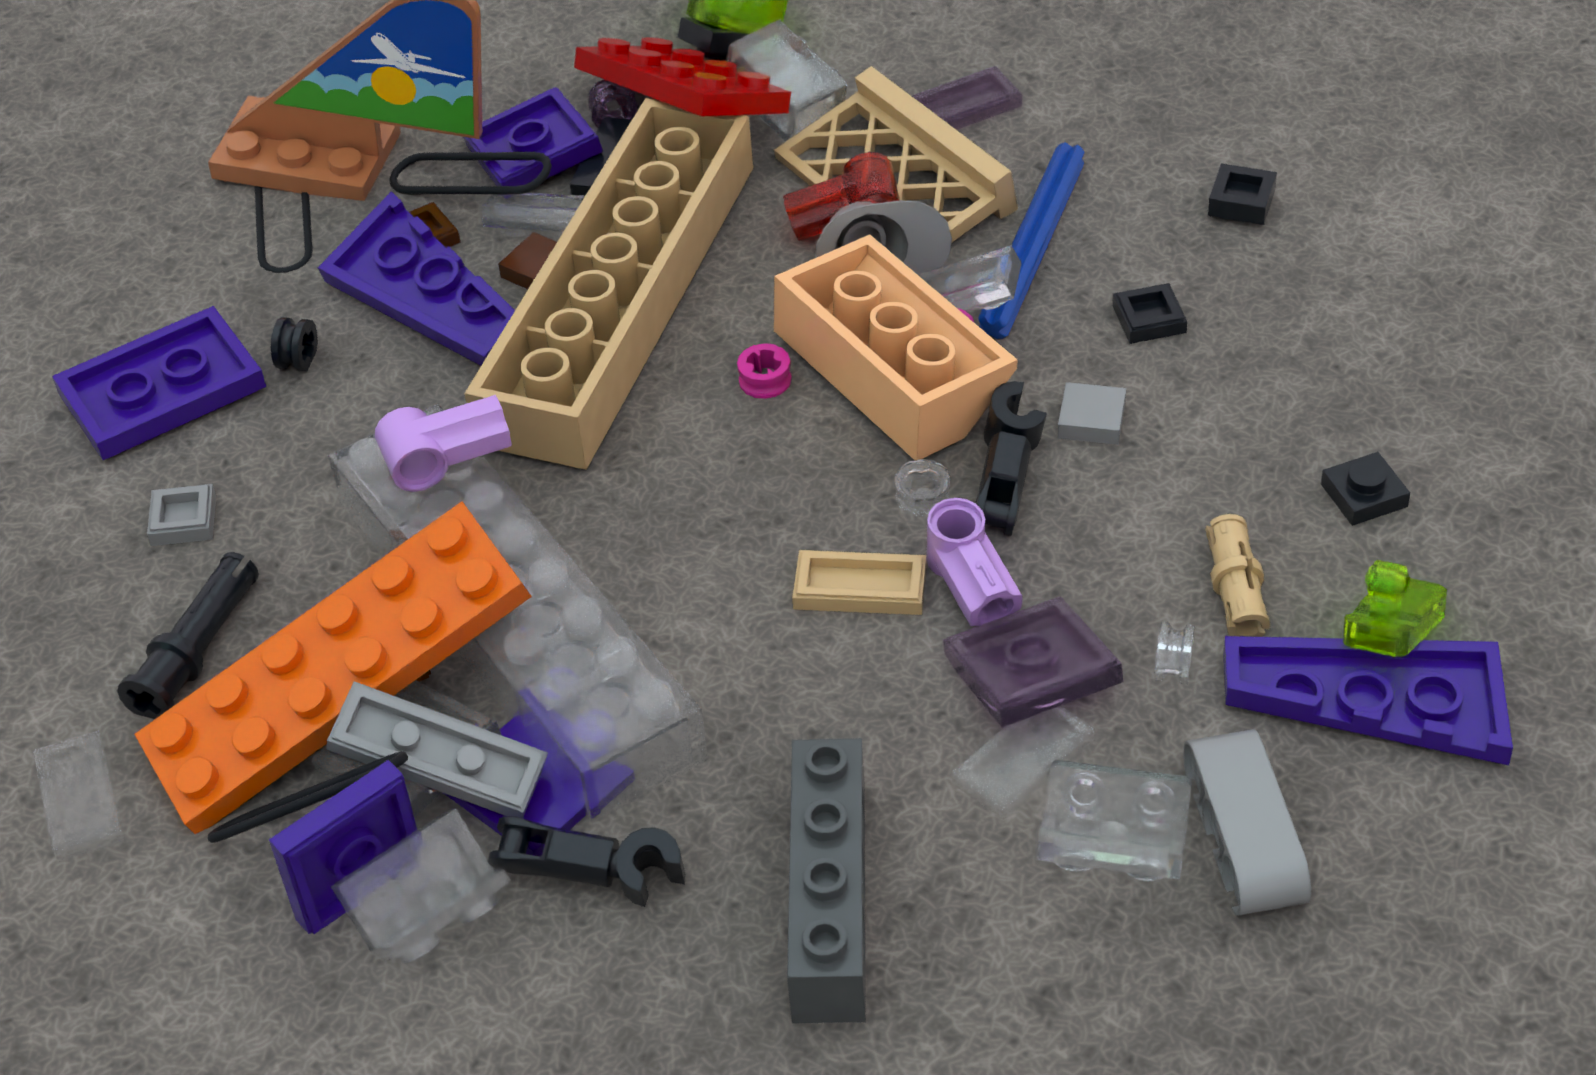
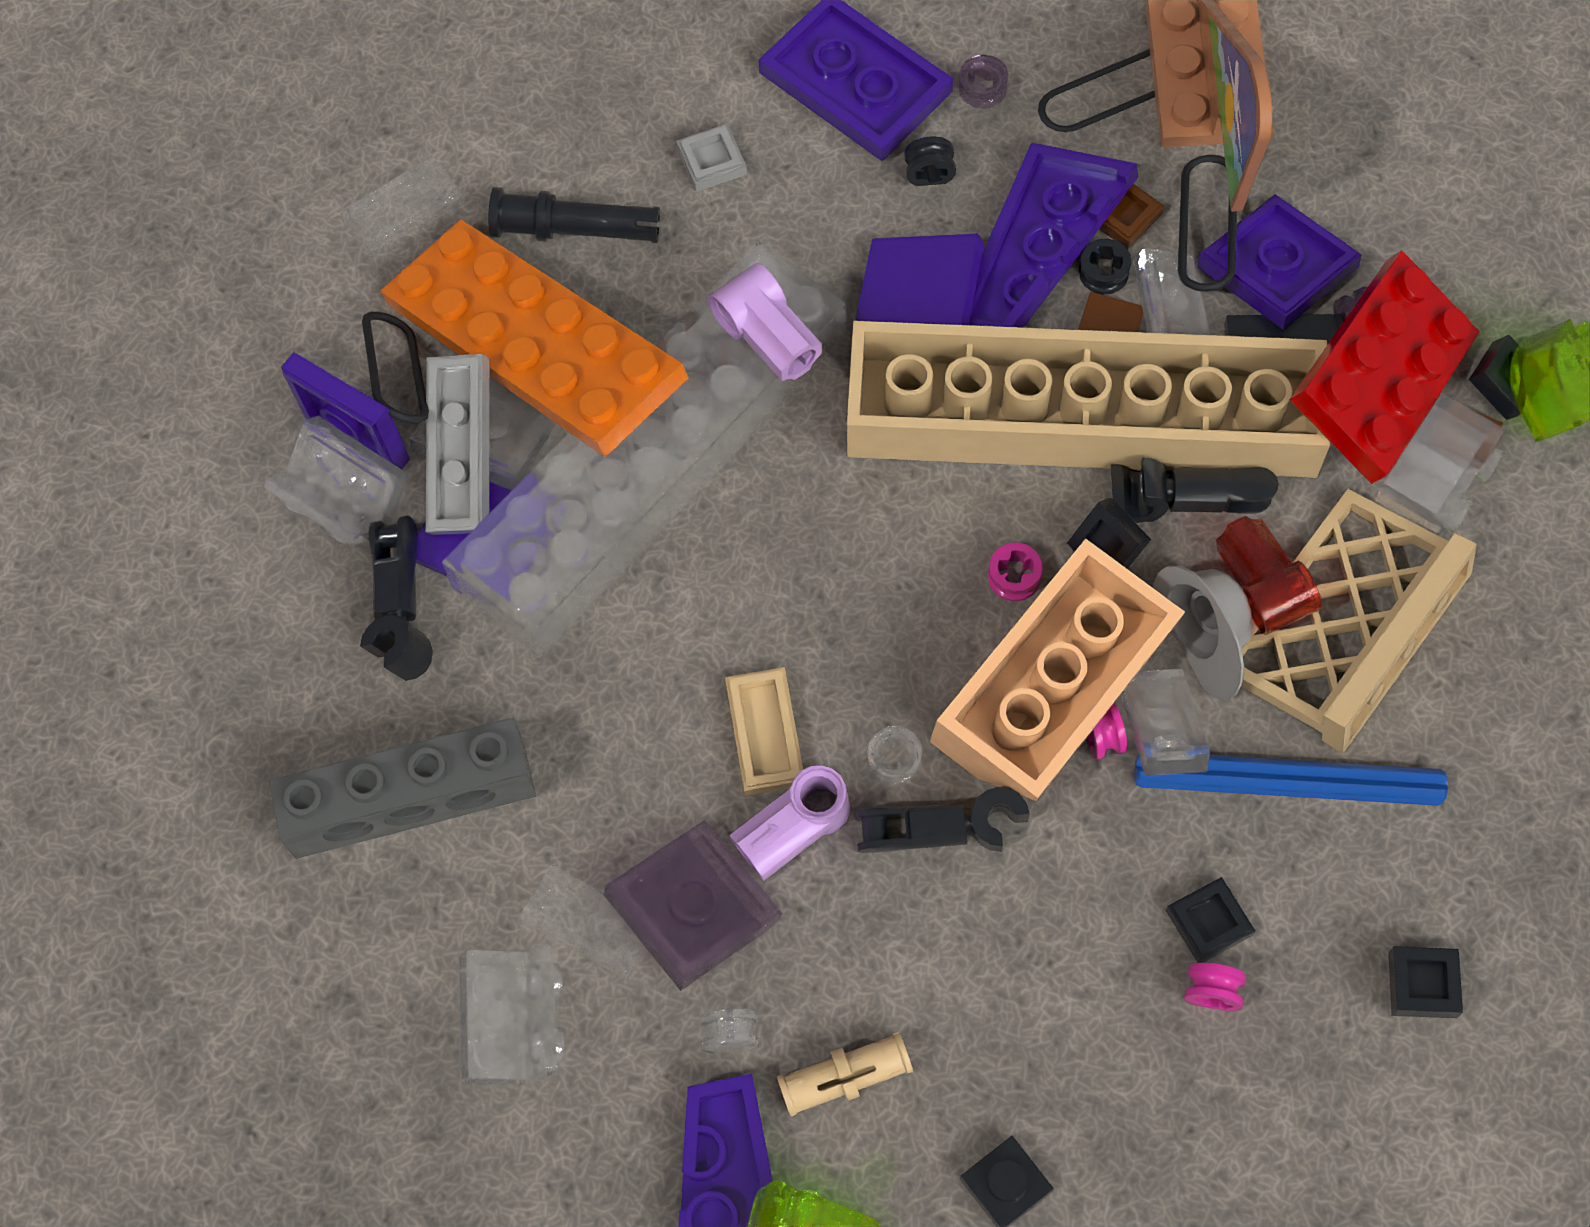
camera: 75 degrees right, 20 degrees up
(220, 283) = (975, 93): none -> clear purple bush
(425, 363) = (921, 279): none -> dark purple tile
(477, 250) = (1119, 258): none -> black bush
(725, 256) = (1213, 490): none -> black piece
(754, 294) = (1111, 532): none -> black plate
(972, 98) = (1496, 655): clear purple tile -> none
(1092, 413) = (1043, 892): light grey tile -> none
(1215, 313) = (1215, 986): none -> dark pink bush
(1250, 822) = (539, 1127): light grey beam -> none

